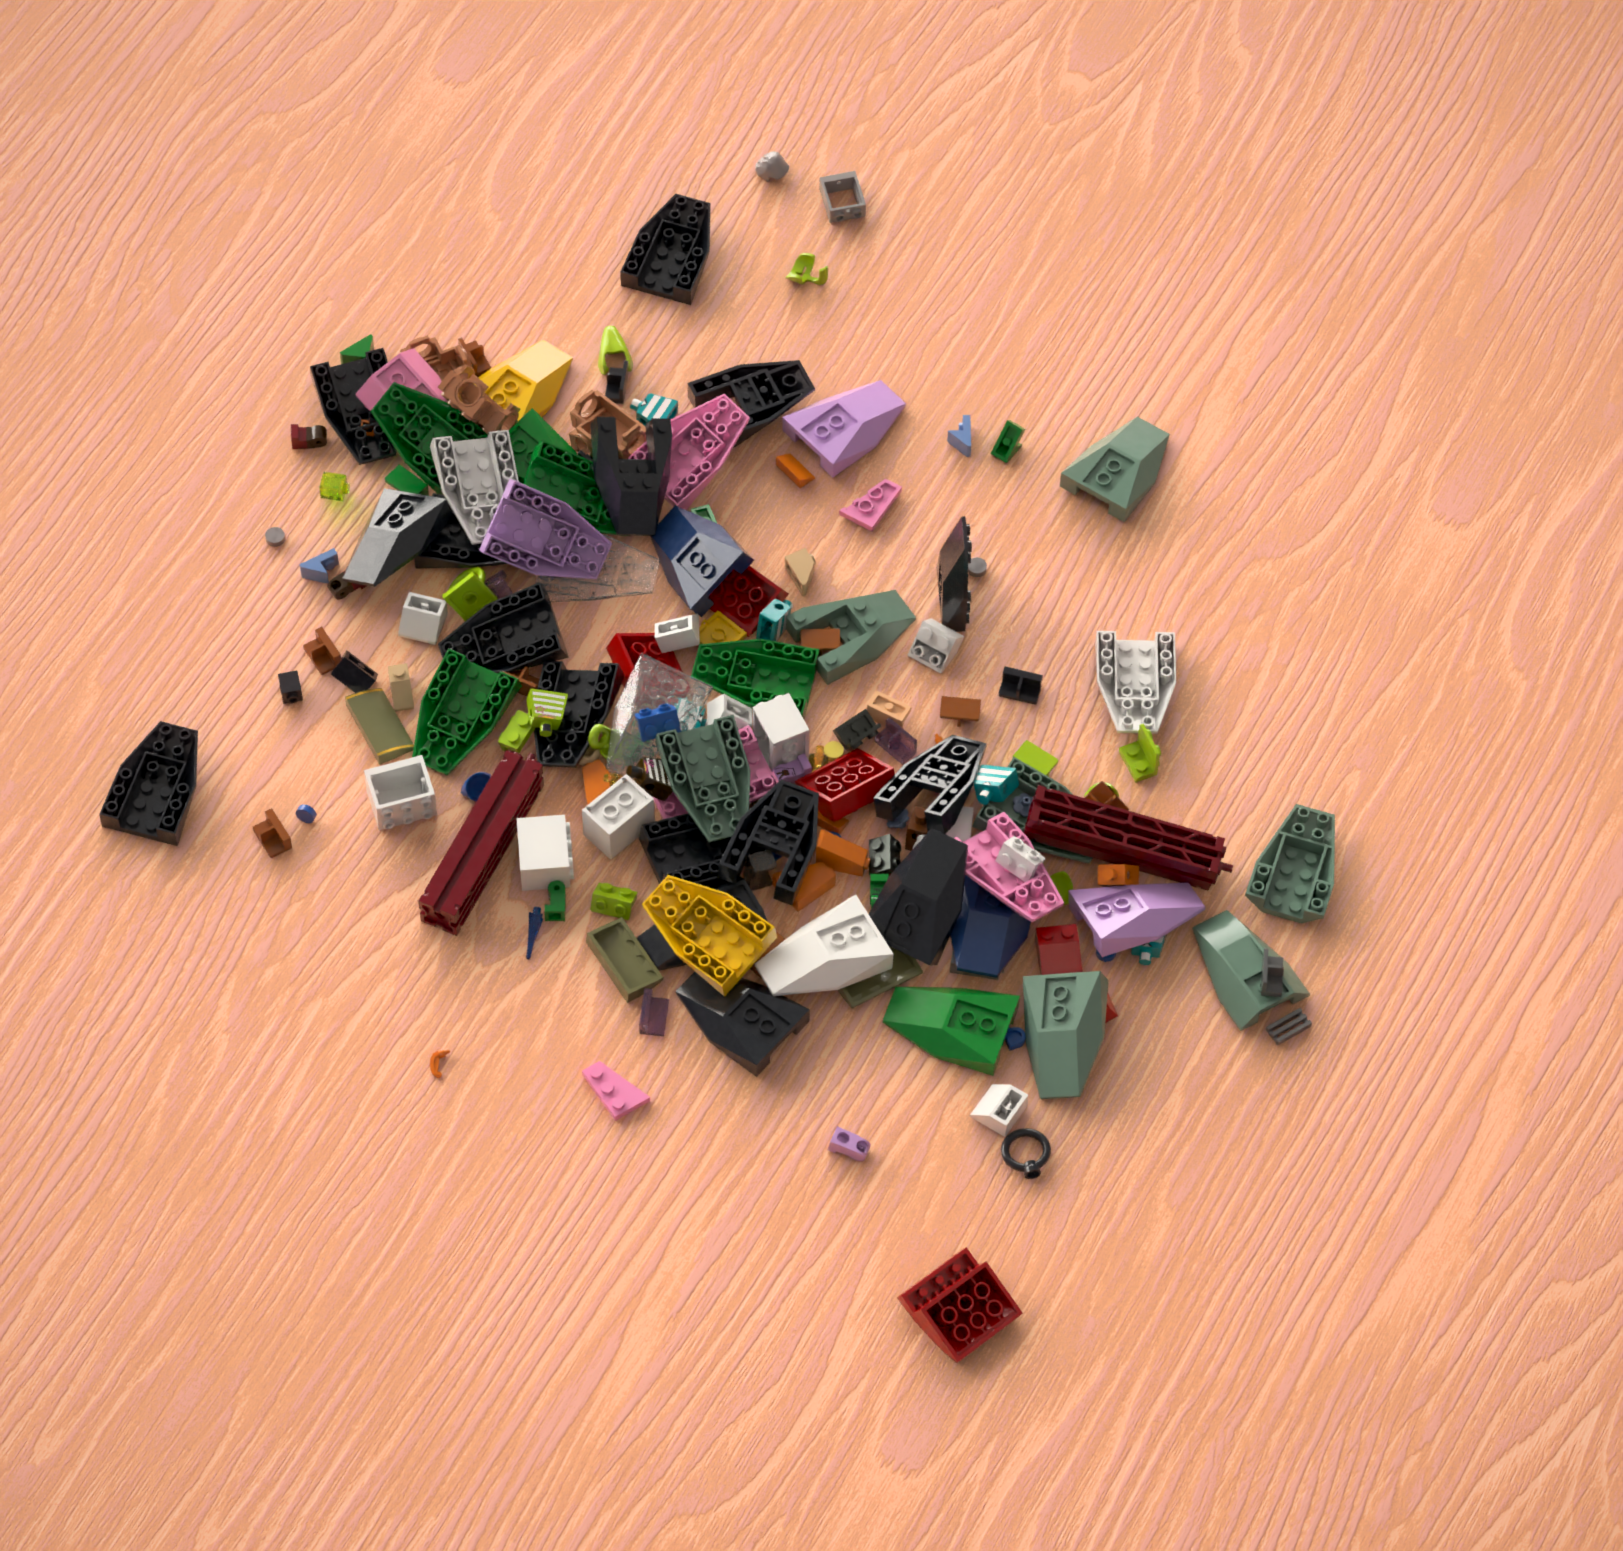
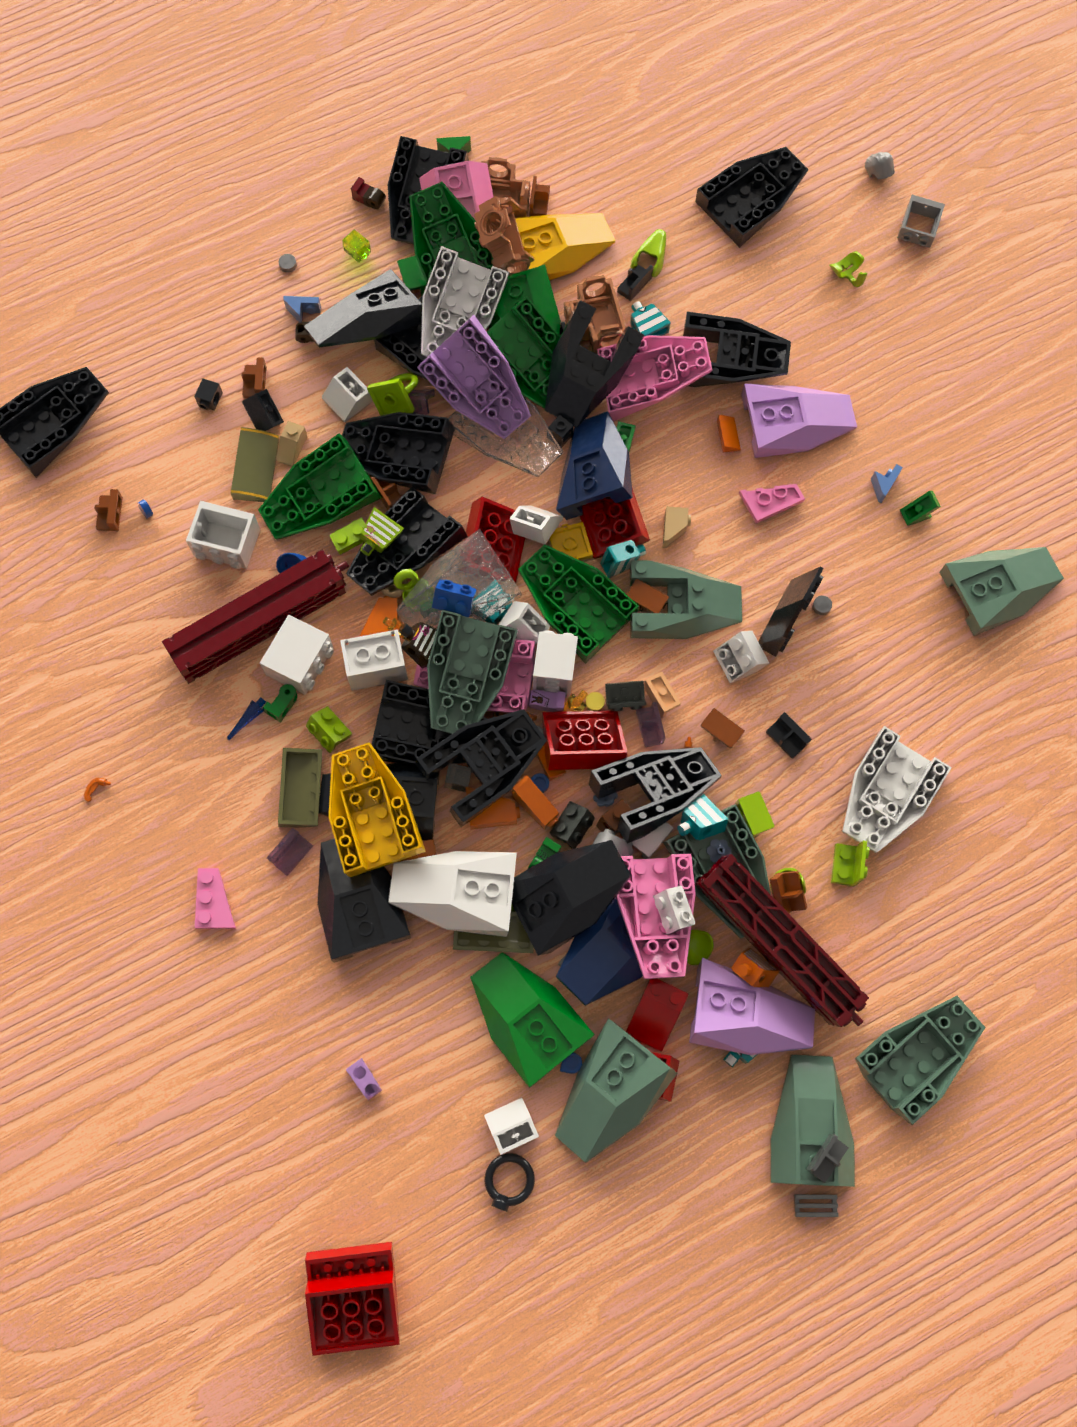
camera: 30 degrees right, 15 degrees up
(643, 541) = (561, 430): none -> black brick

